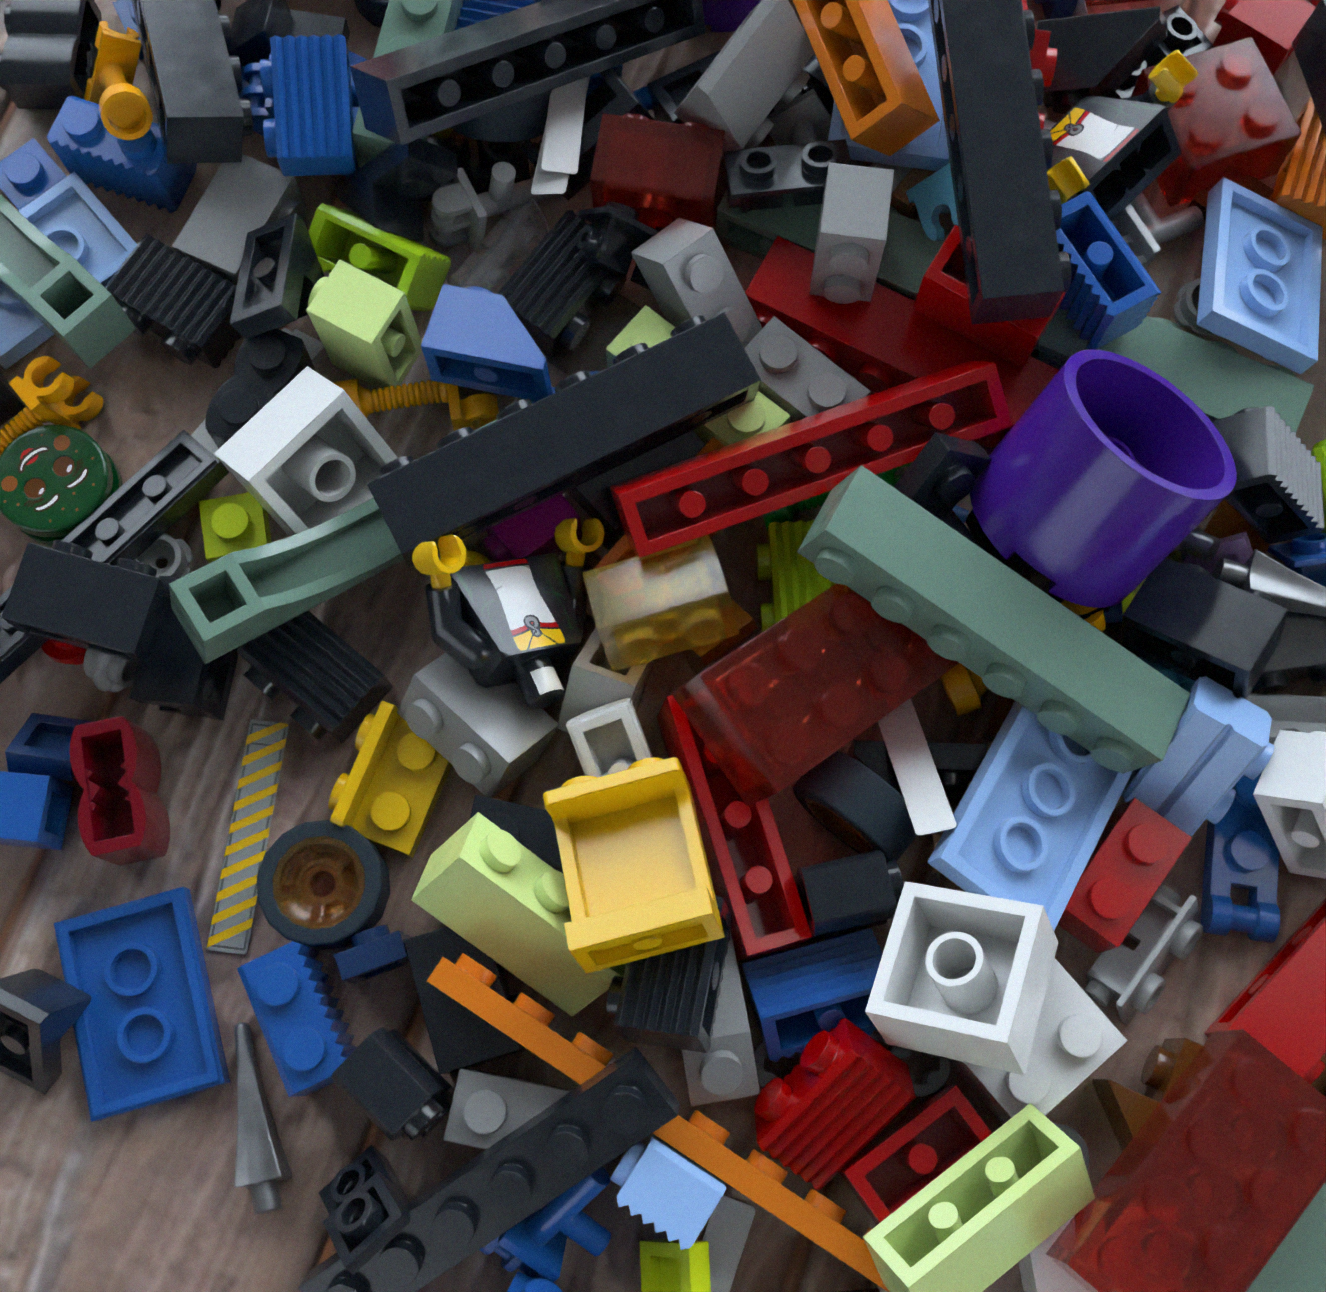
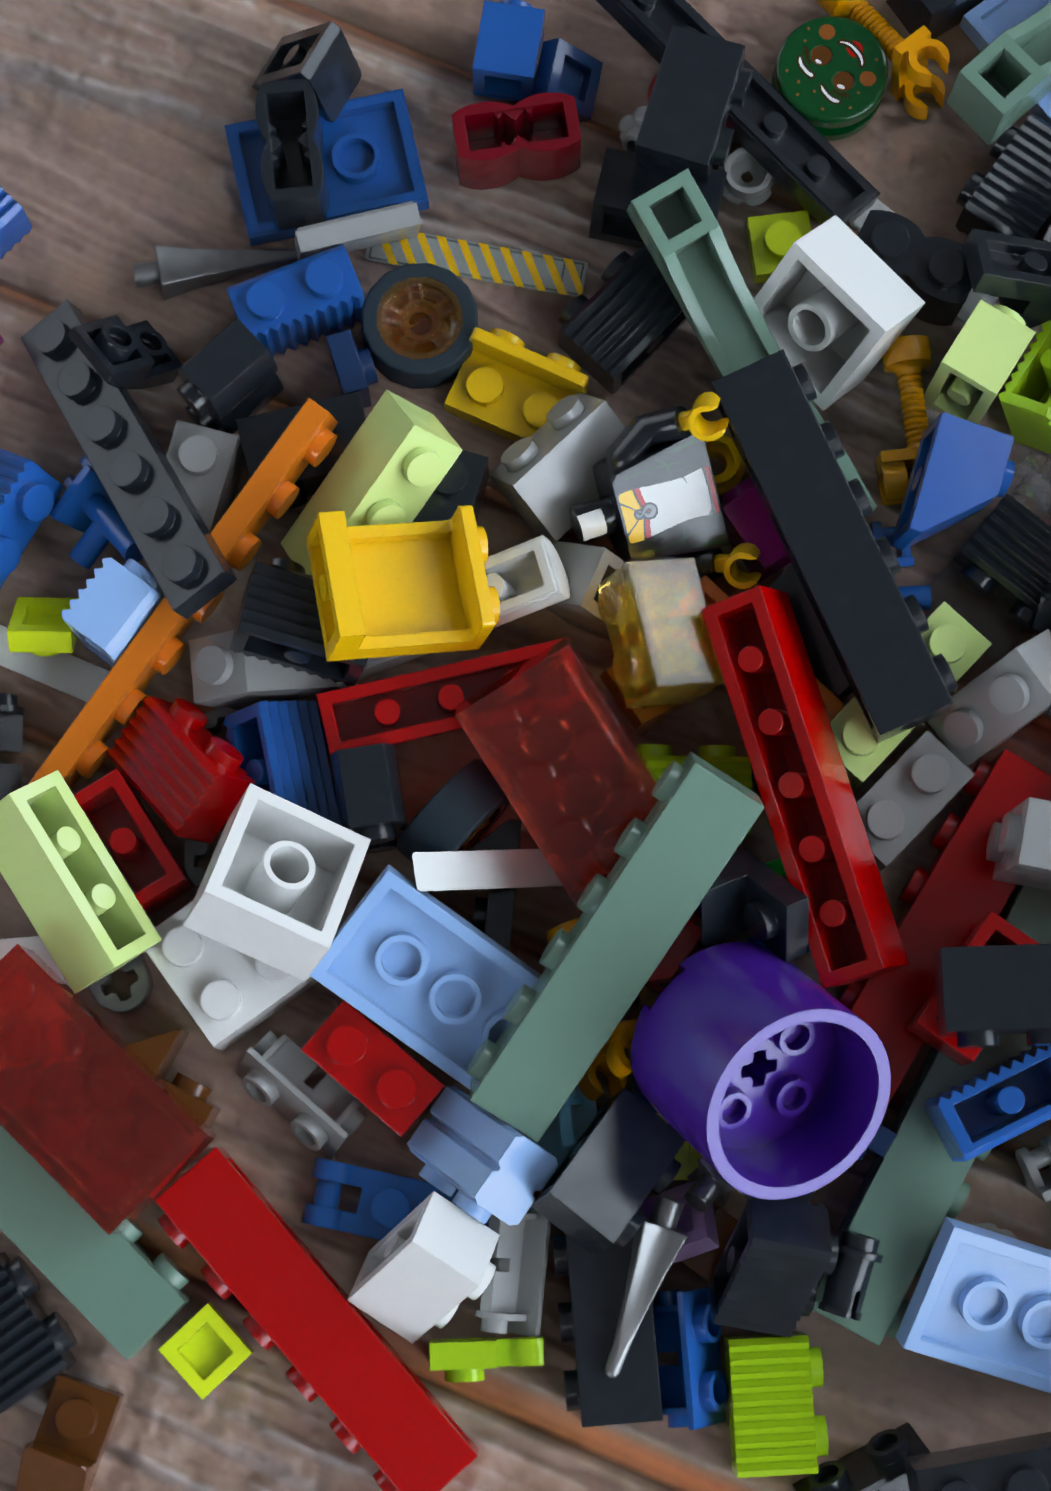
camera: 90 degrees right, 5 degrees up
(120, 1036) = (292, 153): none -> black brick
(220, 958) = (360, 230): none -> light grey tile
(1245, 394) = (850, 1279): none -> black pin

